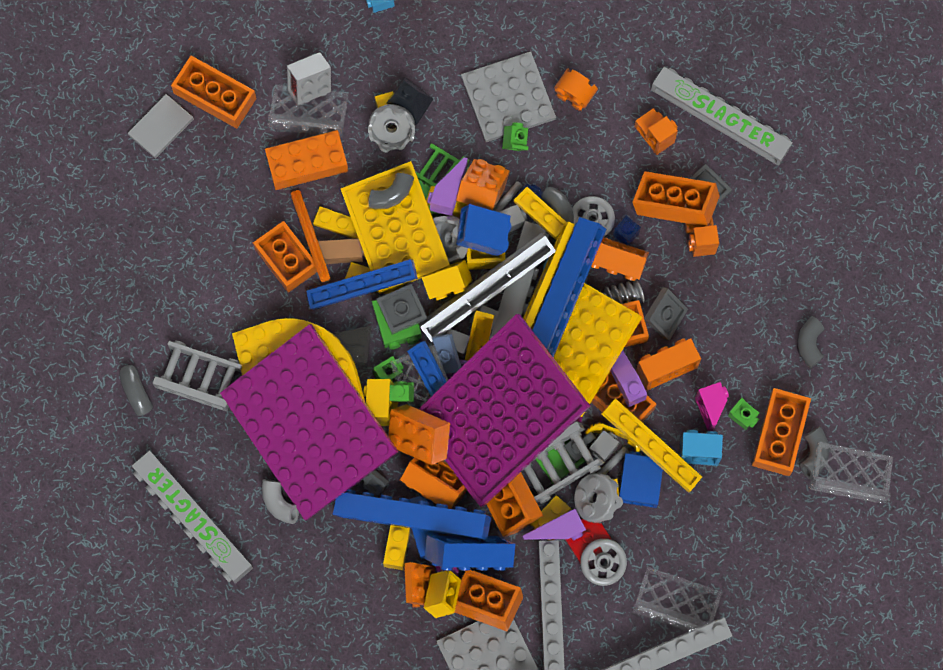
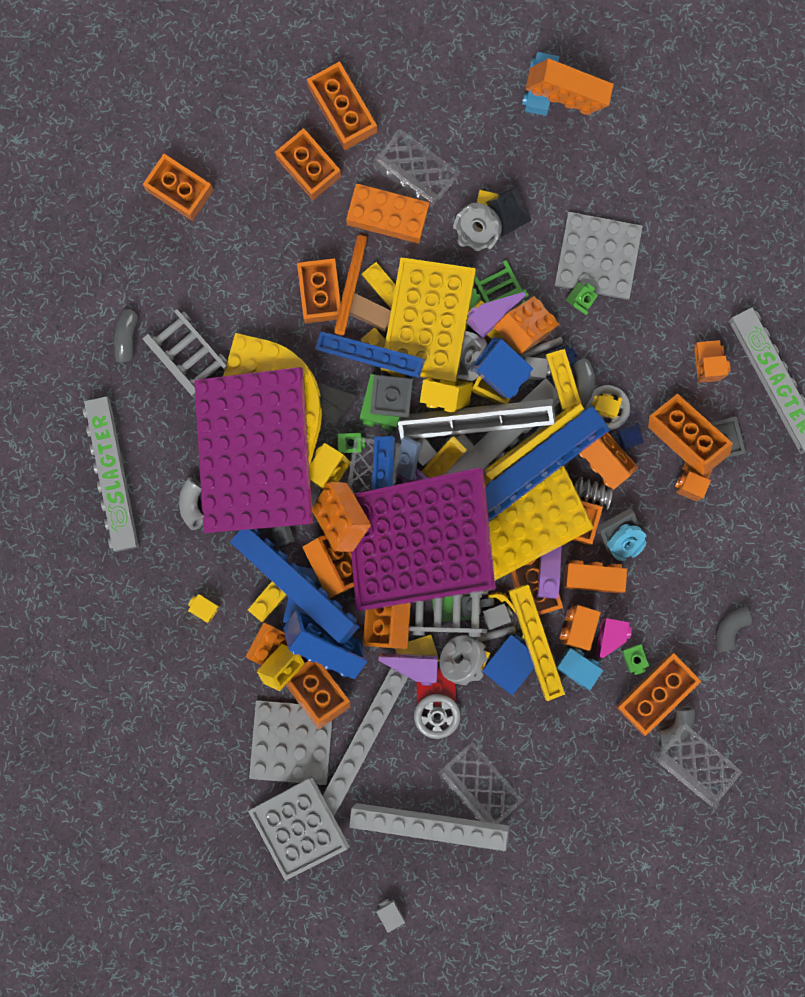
camera: 30 degrees right, 10 degrees up
(109, 237) = (178, 187): none -> orange brick
(160, 126) = (280, 110): light grey tile -> none
(212, 156) = (308, 164): none -> orange brick
(309, 78) = (430, 141): light grey piece -> none
(341, 586) = (203, 608): none -> yellow brick
(394, 194) = (441, 290): dark grey cylinder -> none
(402, 392) = (348, 470): bright green brick -> none
(575, 88) = (661, 283): orange brick -> none
(592, 213) = (606, 405): none -> yellow brick
(672, 311) = (618, 543): none -> medium azure plate
(680, 410) = (579, 627): none -> orange brick

